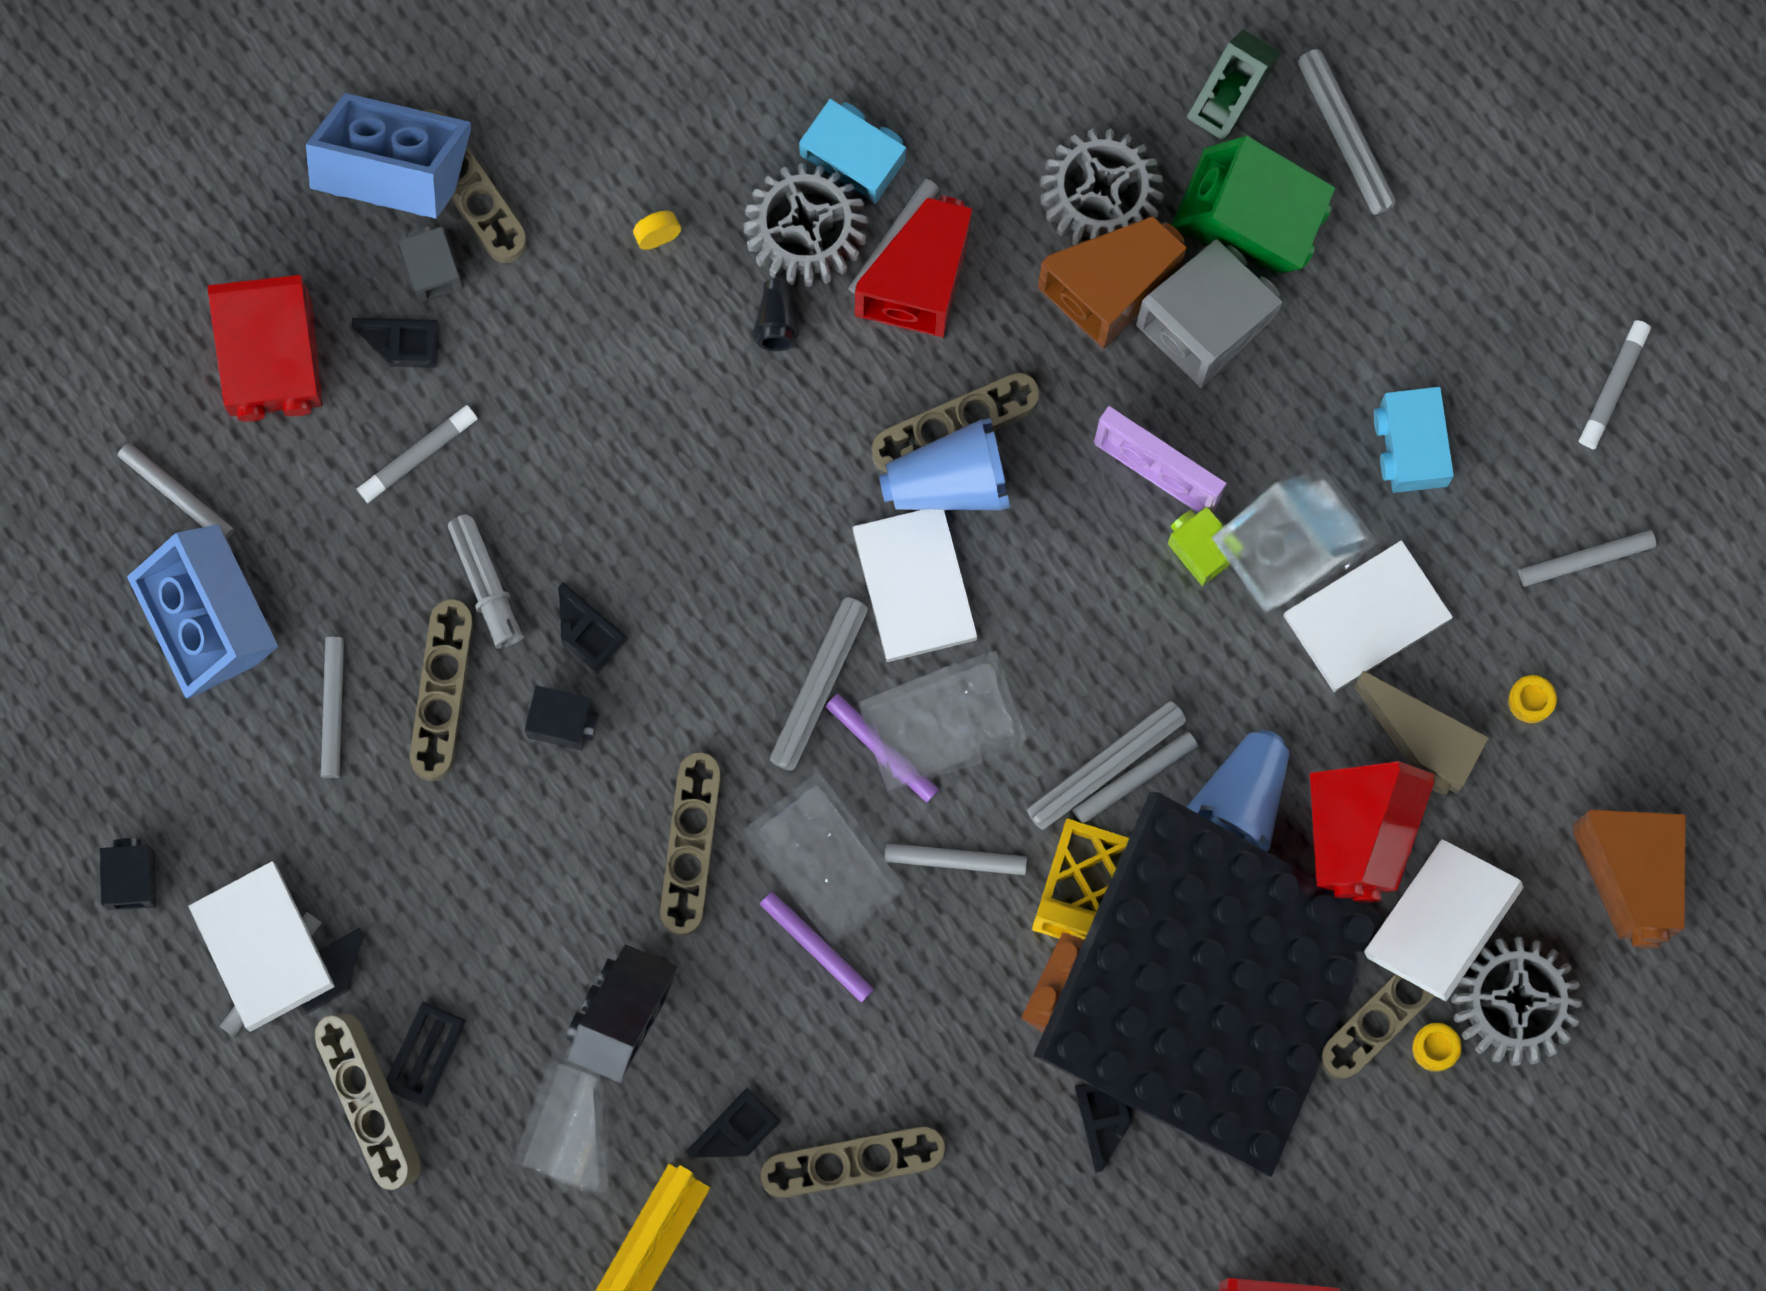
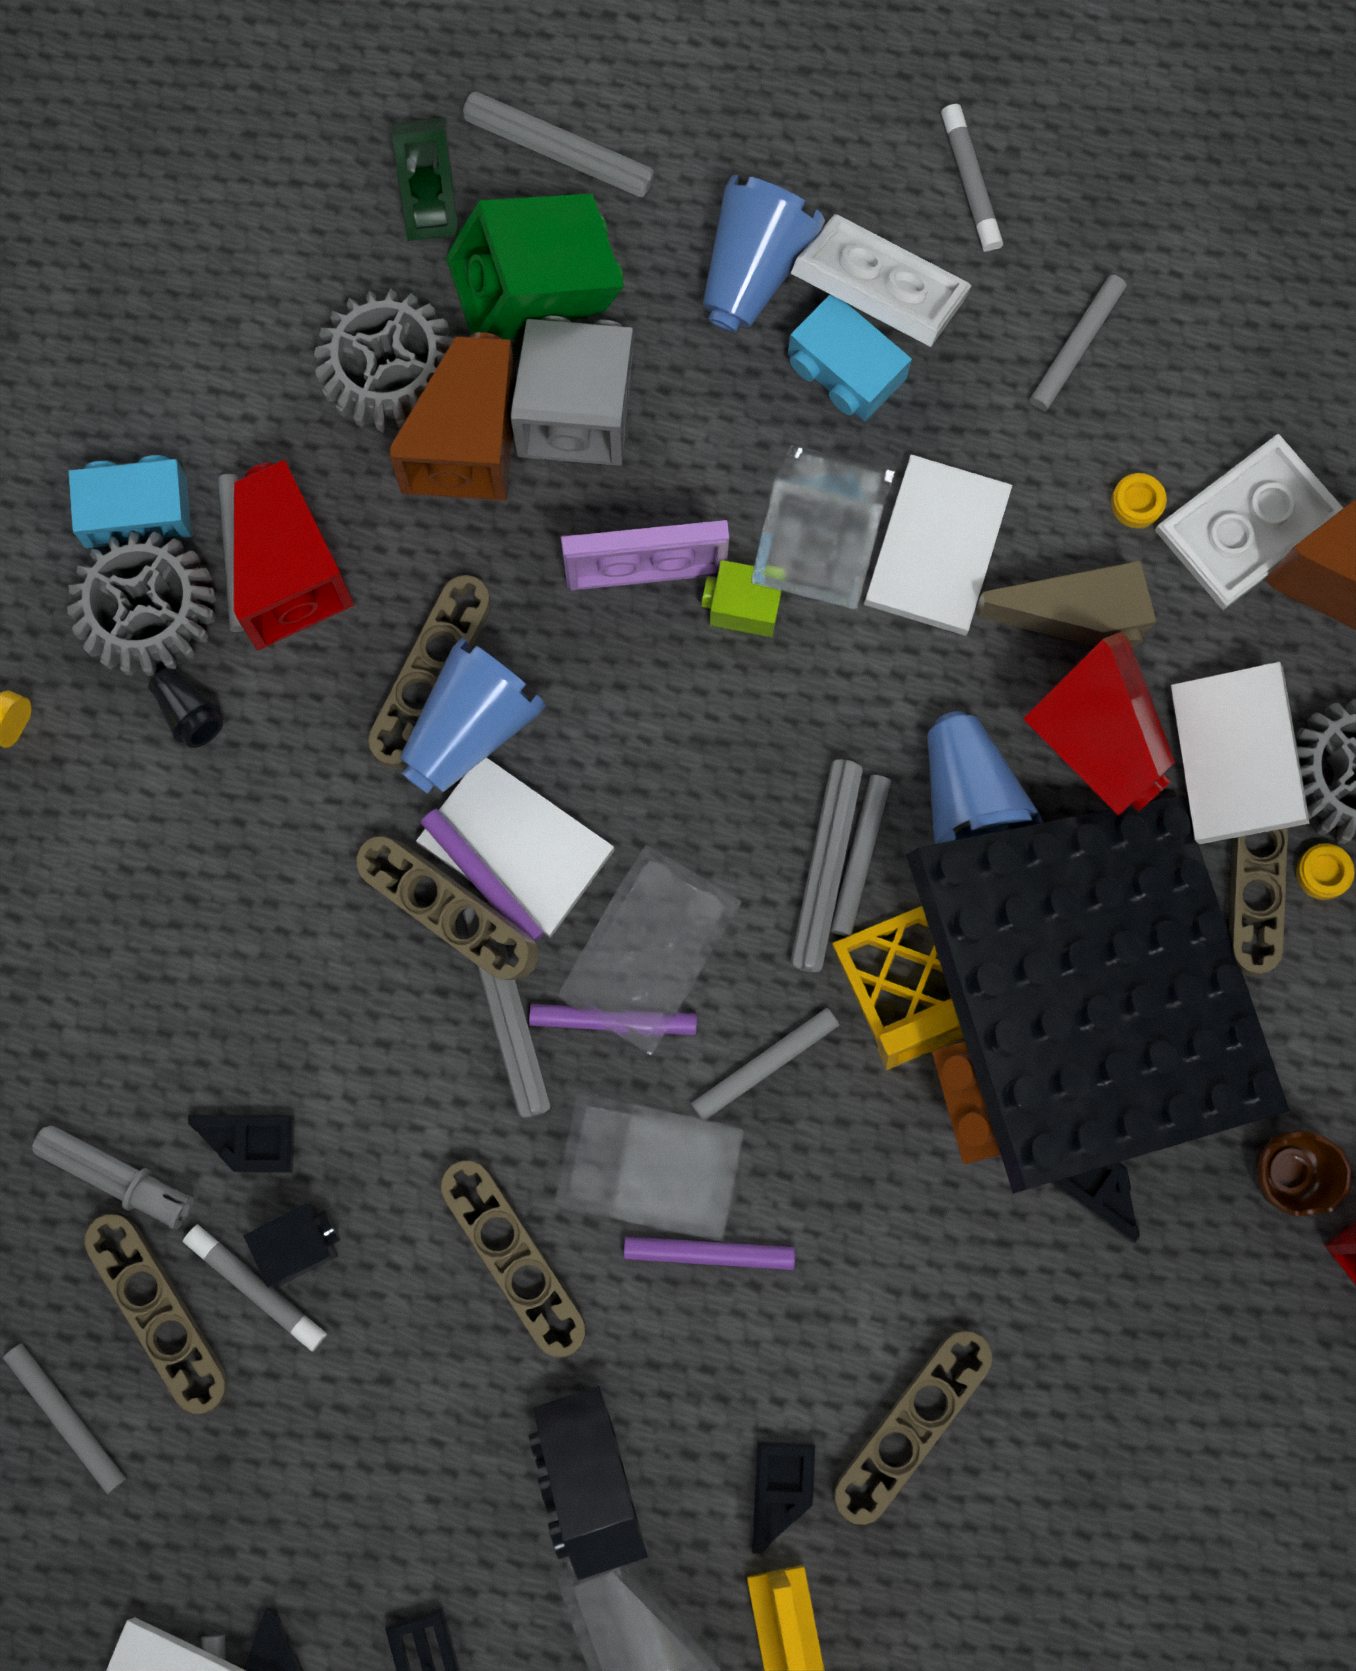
camera: 40 degrees left, 0 degrees up
(514, 726) = (254, 1287): none -> light grey bar
(830, 587) = (443, 912): none -> dark tan beam
(874, 585) = (479, 873): none -> medium lavender bar
(1241, 1204) = (1323, 1169): none -> reddish brown hair
(1411, 316) = (754, 249): none -> medium blue cone
(1484, 405) = (881, 279): none -> white tile
(1594, 771) = (1248, 521): none -> white tile

